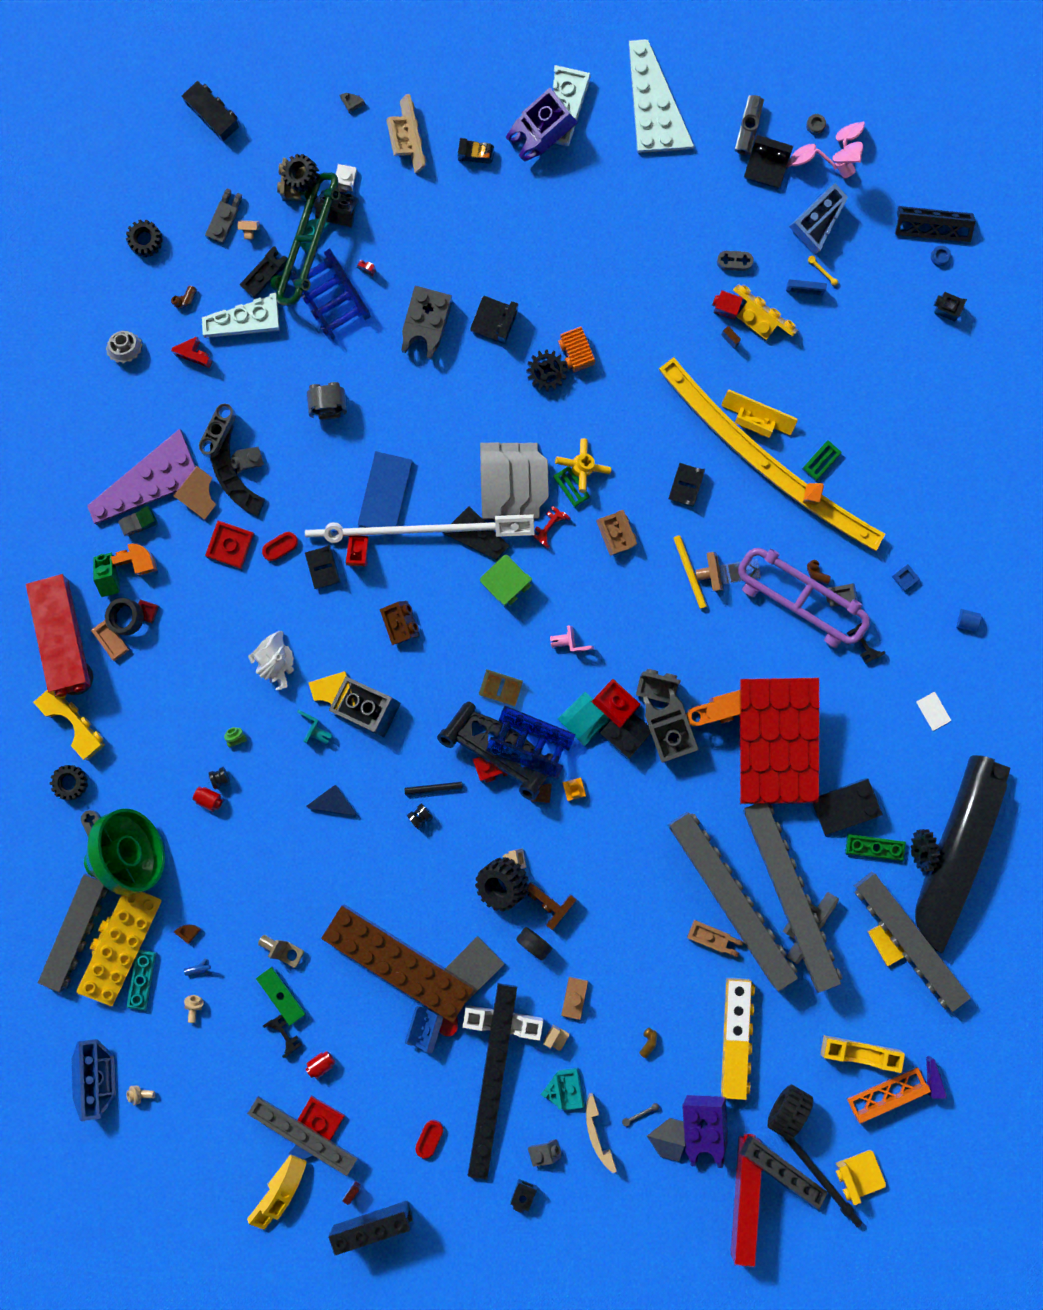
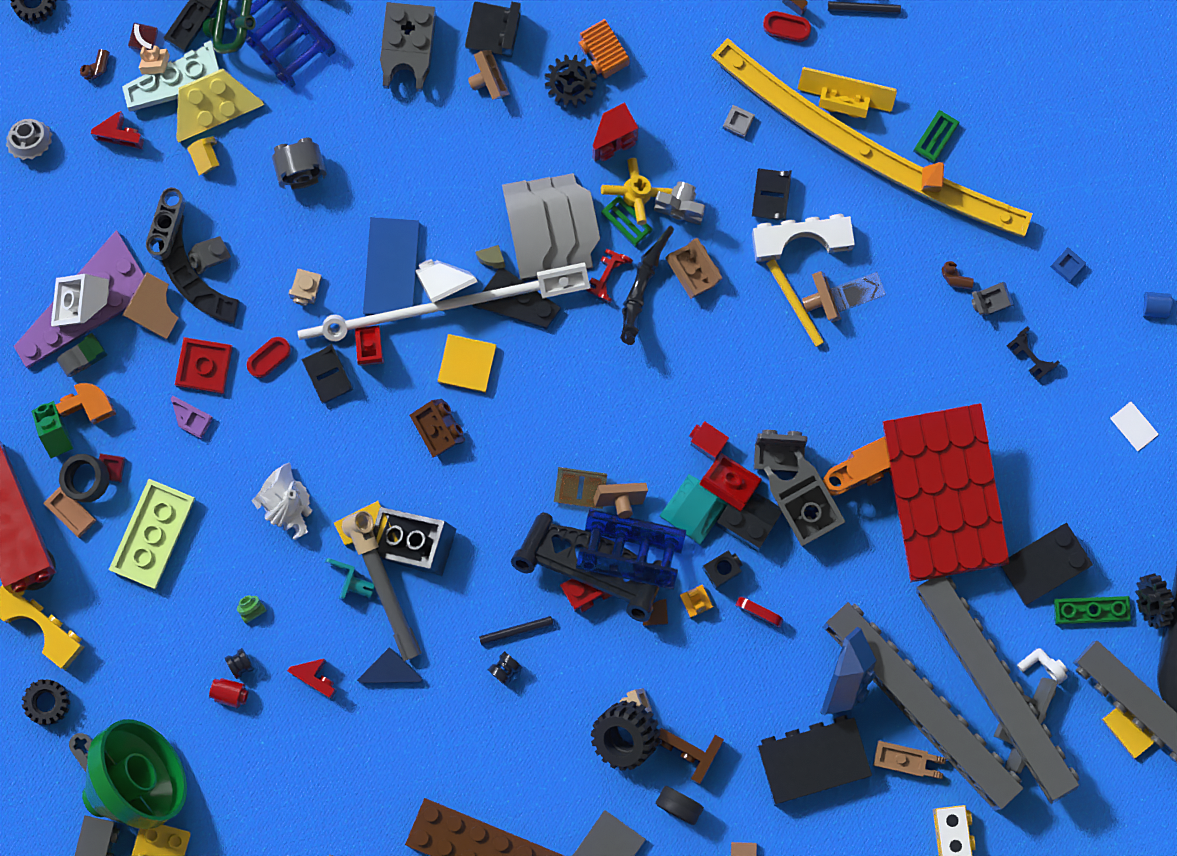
camera: 15 degrees left, 5 degrees down
(141, 478) = (78, 299): none -> white slope
(169, 668) = (152, 534): none -> yellowish green plate
(212, 583) = (191, 418): none -> medium lavender tile
(224, 281) = (143, 36): none -> clear red tile
(228, 301) = (153, 60): none -> light nougat tile
(255, 381) = (203, 155): none -> yellow tile
(268, 341) = (211, 103): none -> light yellow wing
(269, 795) = (307, 673): none -> red slope
(316, 497) = (305, 287): none -> tan bracket
(330, 705) = (366, 545): none -> dark grey piece
(422, 509) = (442, 279): none -> white slope
(430, 576) = (466, 363): none -> yellow tile
(462, 497) = (491, 256): none -> olive tile
(484, 356) = (489, 76): none -> medium nougat tile
(506, 581) = (564, 352): bright green bracket -> none
(530, 700) = (621, 496): none -> medium nougat tile
(567, 549) = (635, 300): none -> black animal
(568, 640) = (656, 413): bright pink bracket -> none
(573, 416) = (614, 132): none -> red slope
(589, 767) = (714, 576): none -> black brick
(604, 667) = (708, 440): none -> red brick
(615, 480) = (680, 203): none -> light grey plant
(621, 806) = (759, 612): none -> red tile
(642, 926) = (814, 759): none -> black panel
(671, 423) = (738, 121): none -> light grey tile
(681, 870) = (851, 675): none -> blue wedge
(721, 355) = (786, 26): none -> red tile
(729, 523) = (832, 233): none -> white arch
(784, 350) = (864, 7): none -> black bar
(834, 636) = (991, 352): medium lavender bar -> none
(838, 887) = (1055, 669): none -> white plate

